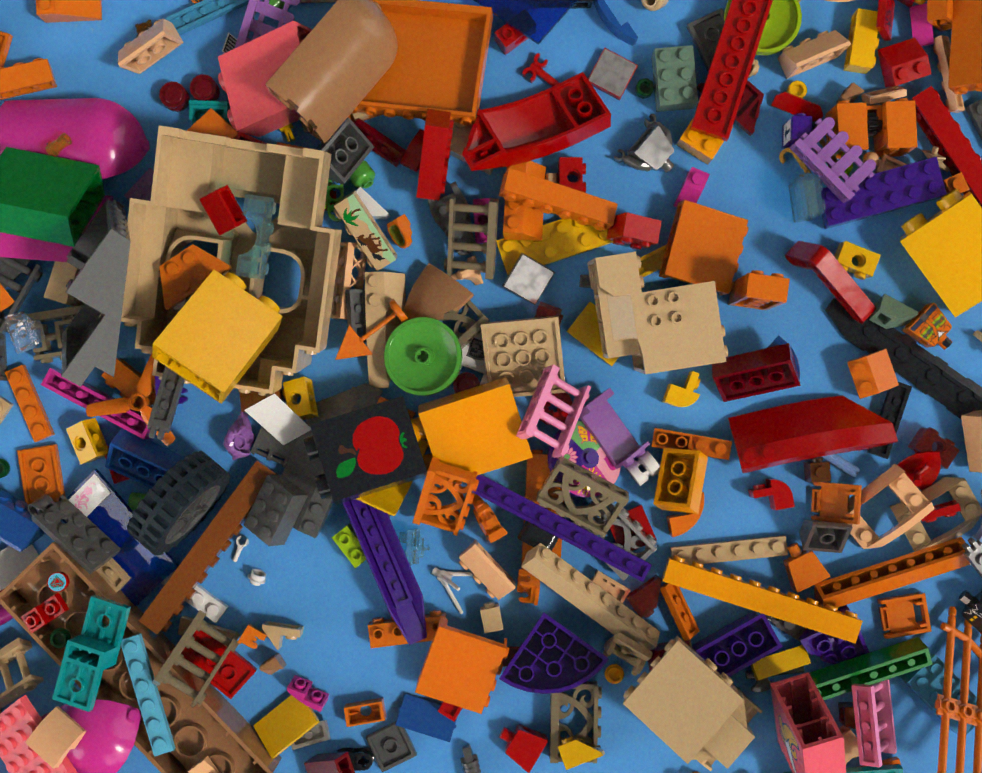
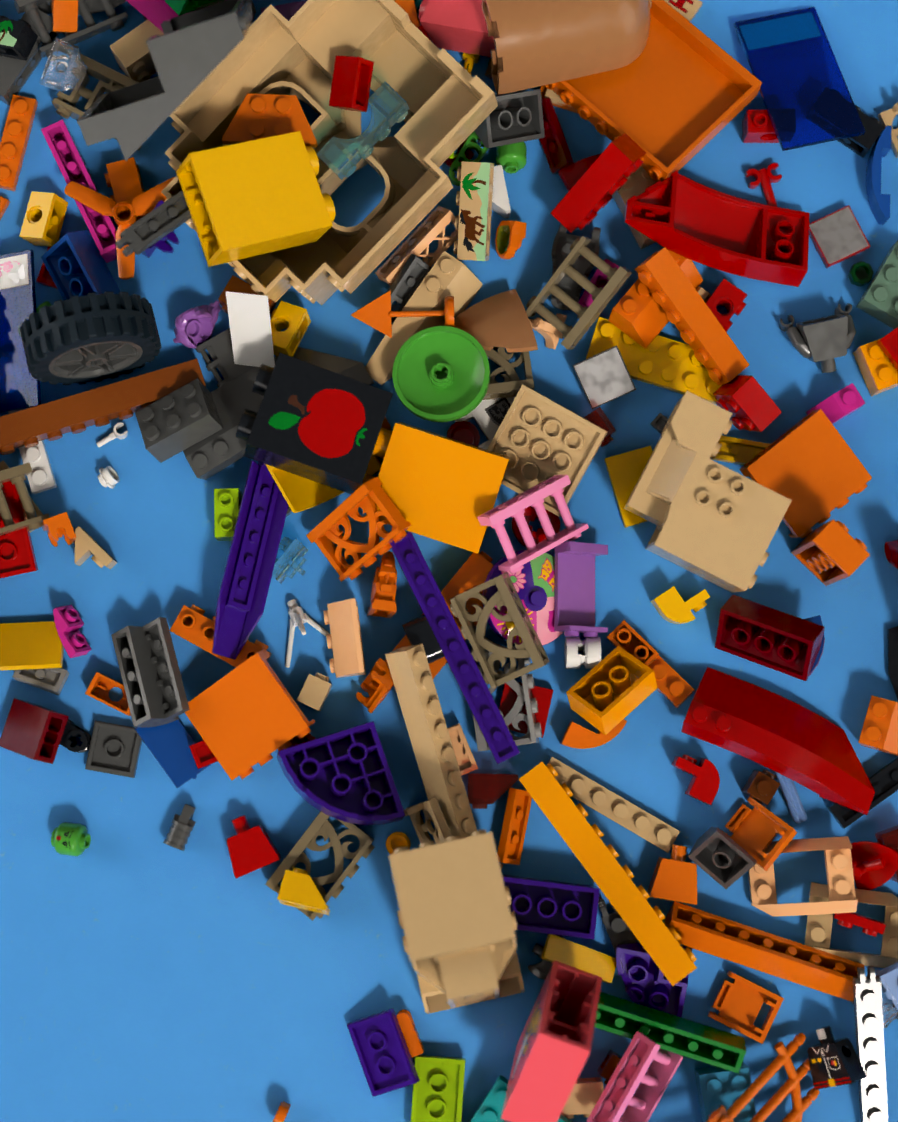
camera: 30 degrees right, 5 degrees down
(273, 664) = (57, 577): medium nougat slope -> none
(379, 685) = (150, 673): none -> dark grey brick

